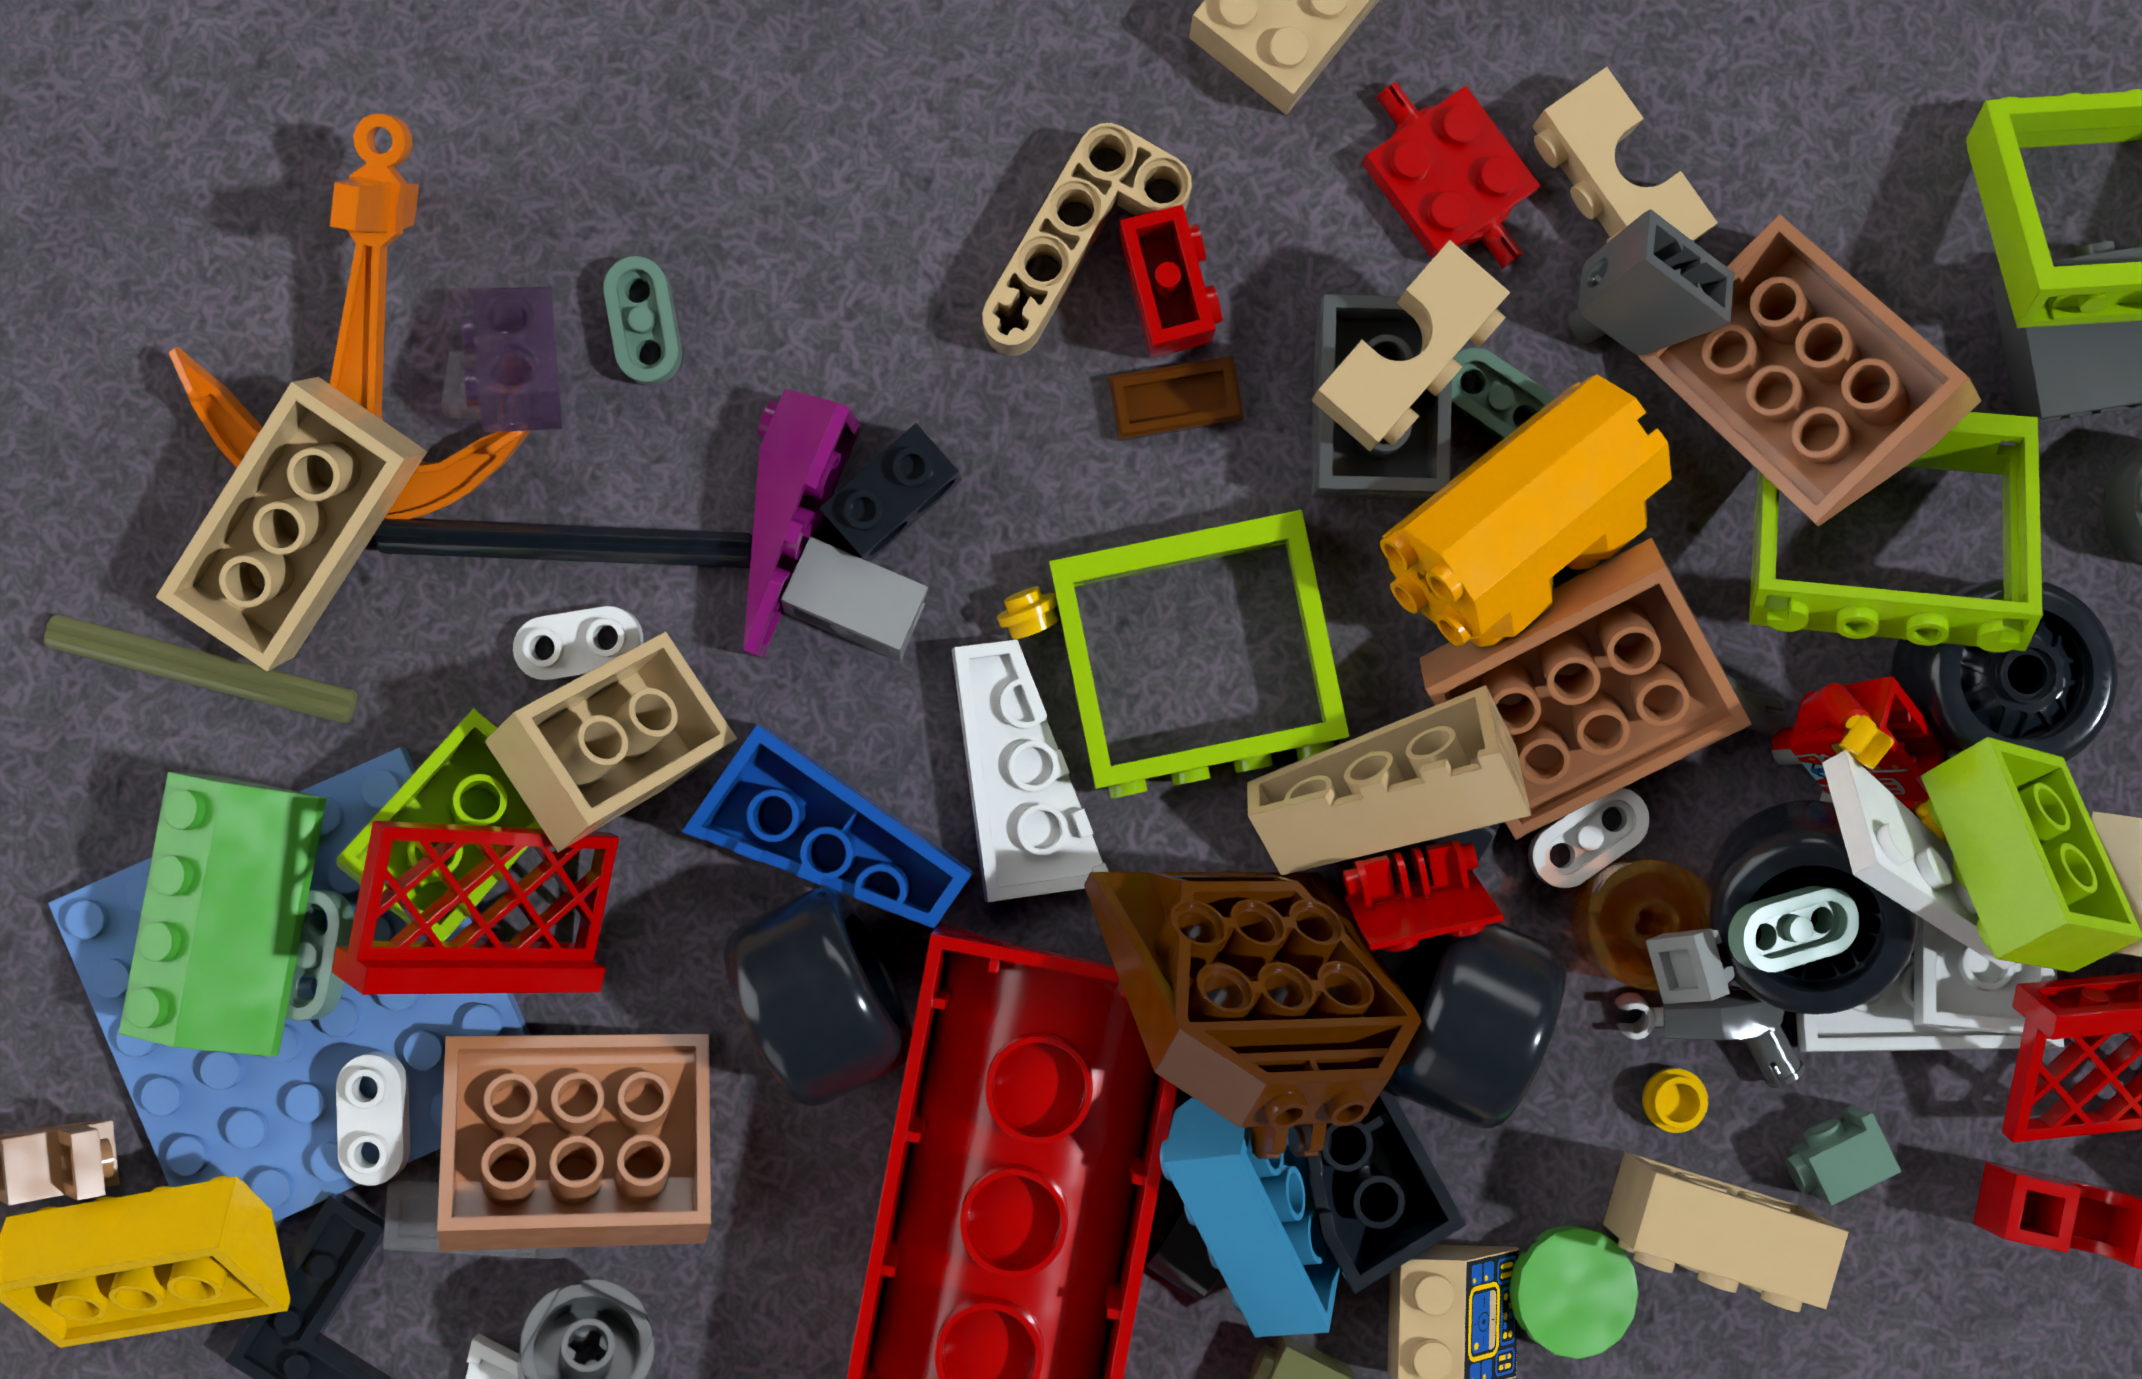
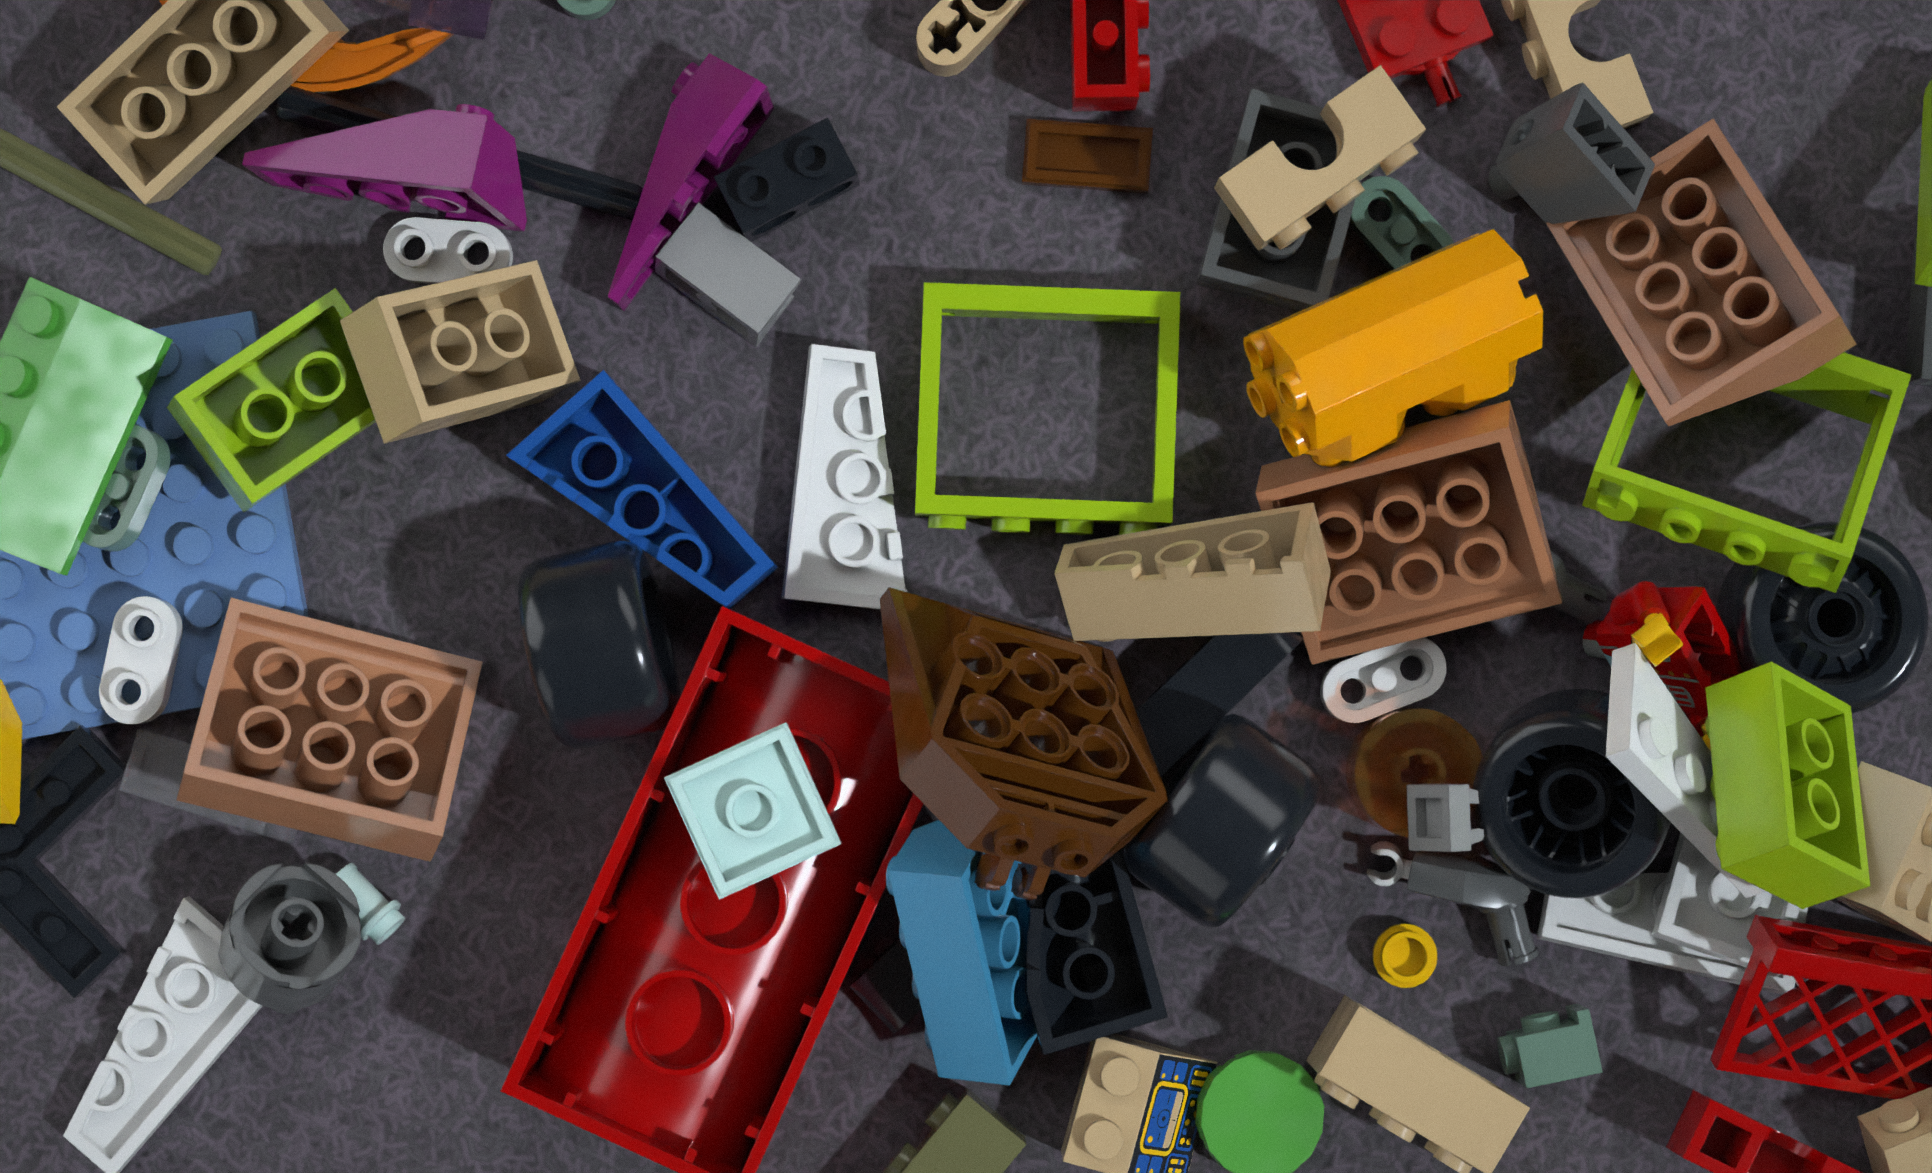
camera: 15 degrees right, 0 degrees up
(462, 963) = (265, 526): red fence -> none
(538, 555) = (433, 157): none -> magenta wedge
(664, 1307) = (377, 915): none -> light aqua pin
(1012, 1130) = (752, 810): none -> light aqua tile
(1028, 612) = (892, 328): yellow plate -> none
(1404, 913) = (1227, 701): red hinge -> none
(1787, 928) = (1542, 800): plate -> none

